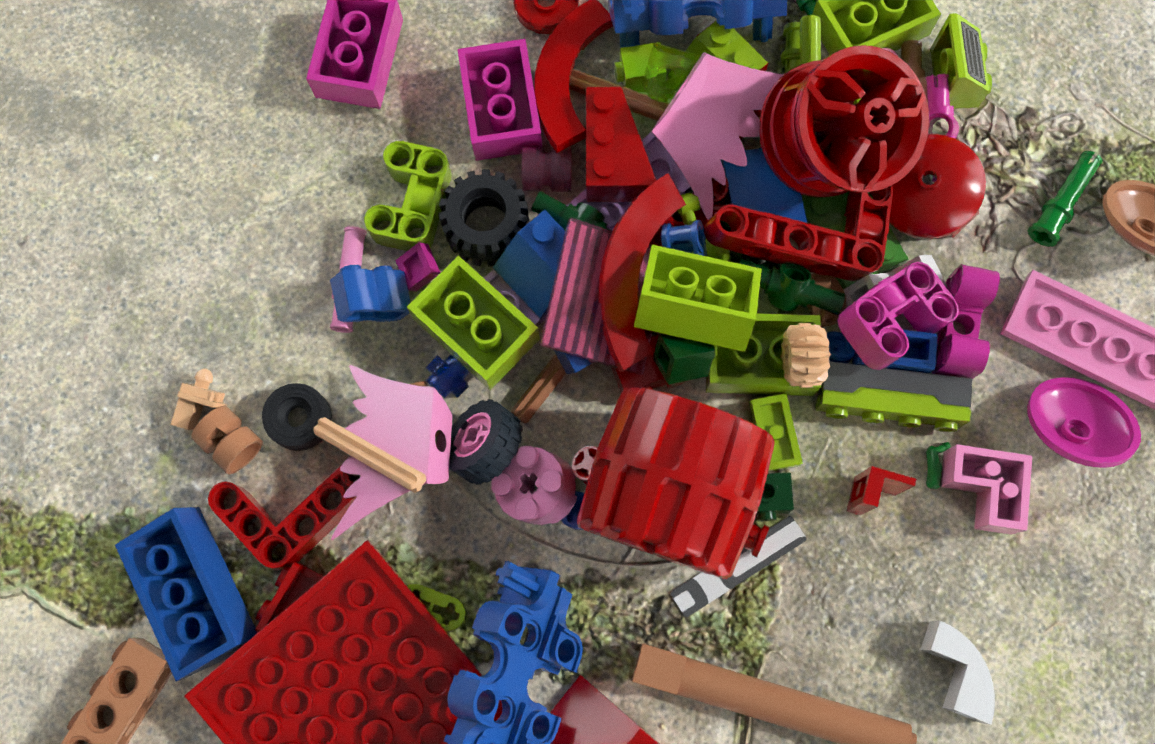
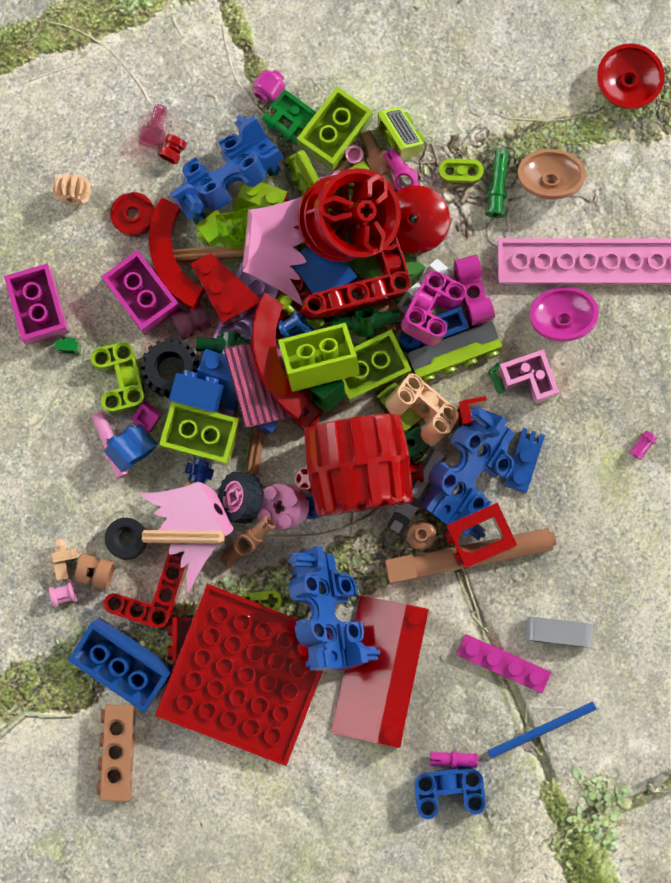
camera: 25 degrees left, 5 degrees up
(168, 448) = (63, 594): none -> bright pink bush
(366, 122) = (68, 346): none -> green plate
(459, 510) = (254, 535): none -> nougat pin
(499, 261) = (196, 391): none -> blue brick
(714, 635) = (421, 535): none -> nougat head
(792, 626) = (486, 430): none -> blue gear
(805, 355) = (393, 358): light nougat gear -> none
(825, 462) = (427, 402): none -> light nougat beam
(845, 686) = (469, 559): none -> red panel
(919, 605) = (524, 461): none -> blue hinge
(971, 685) = (572, 493): white brick -> none
(1020, 154) = (460, 168): none -> lime plate
(1113, 674) = (643, 445): none -> dark pink pin

